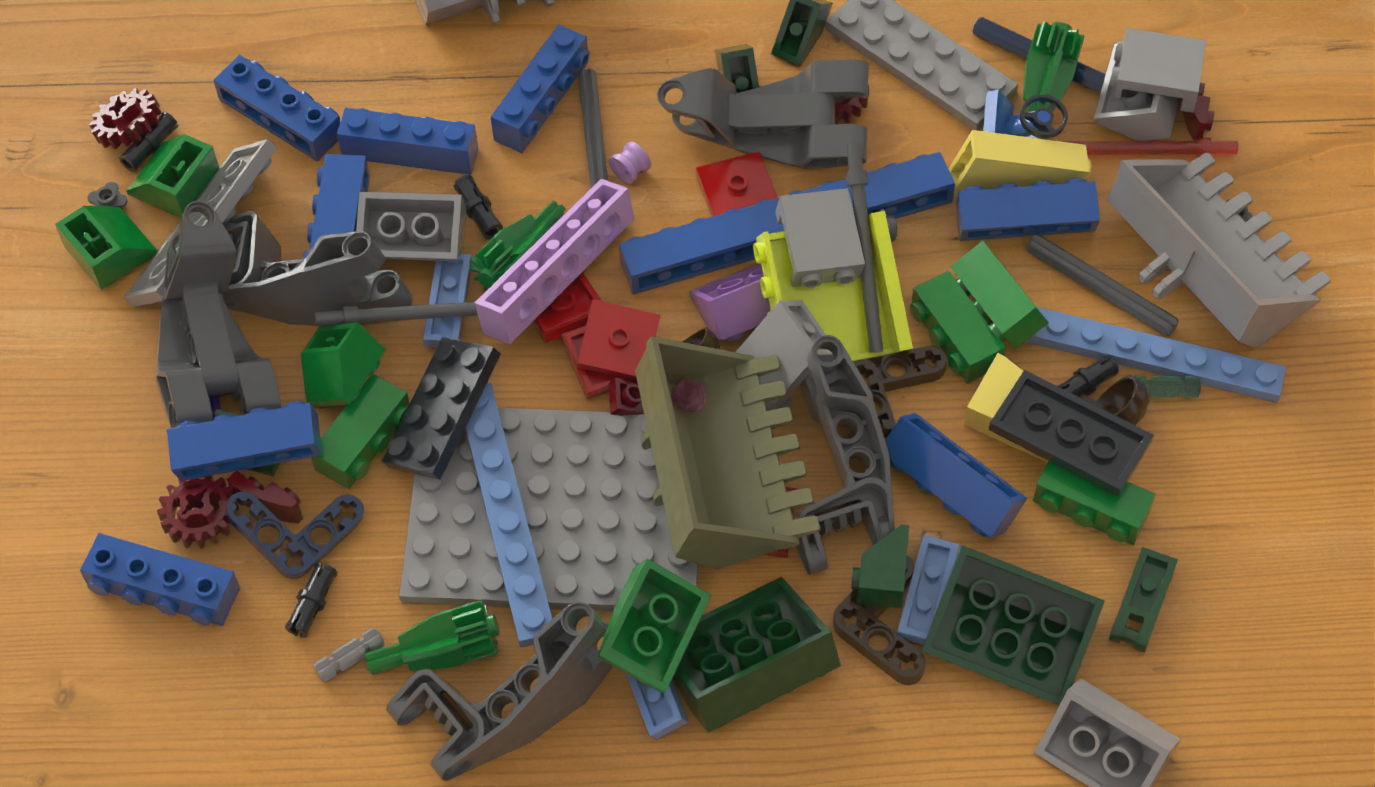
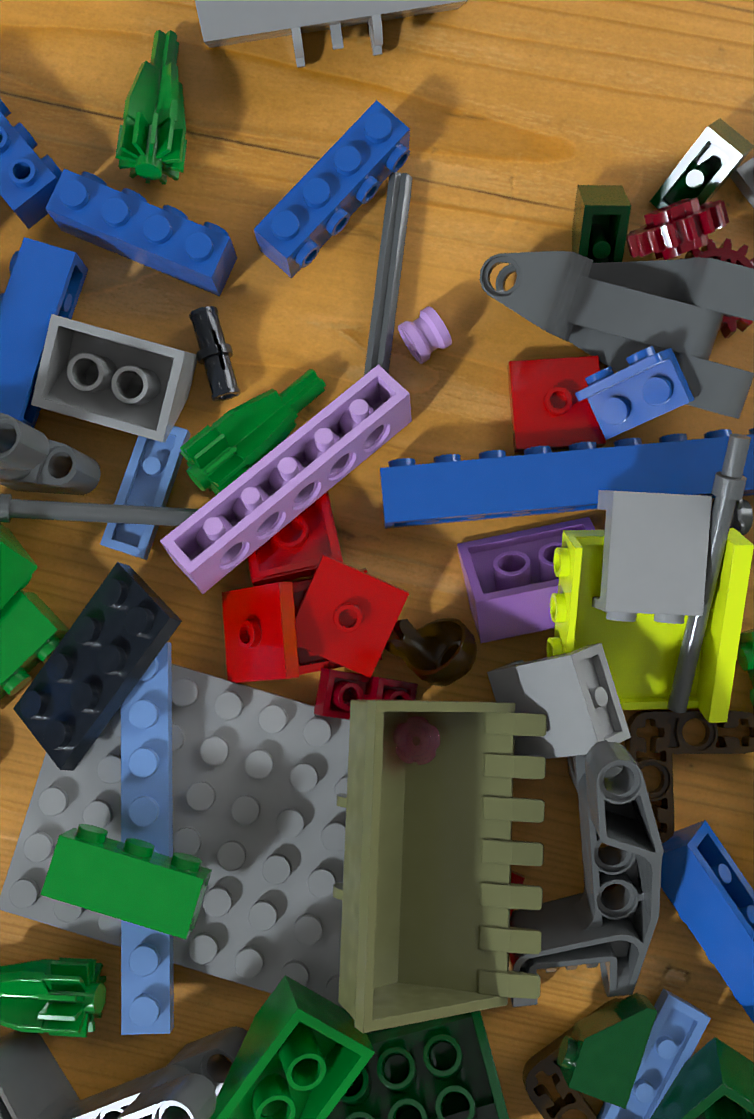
camera: 15 degrees right, 25 degrees up
(398, 61) = (154, 116): none -> green piece
(502, 522) = (127, 880): none -> green brick
(557, 365) = (260, 633): none -> red plate
(787, 157) = (637, 393): none -> blue bracket
(790, 57) = (677, 228): none -> dark red gear

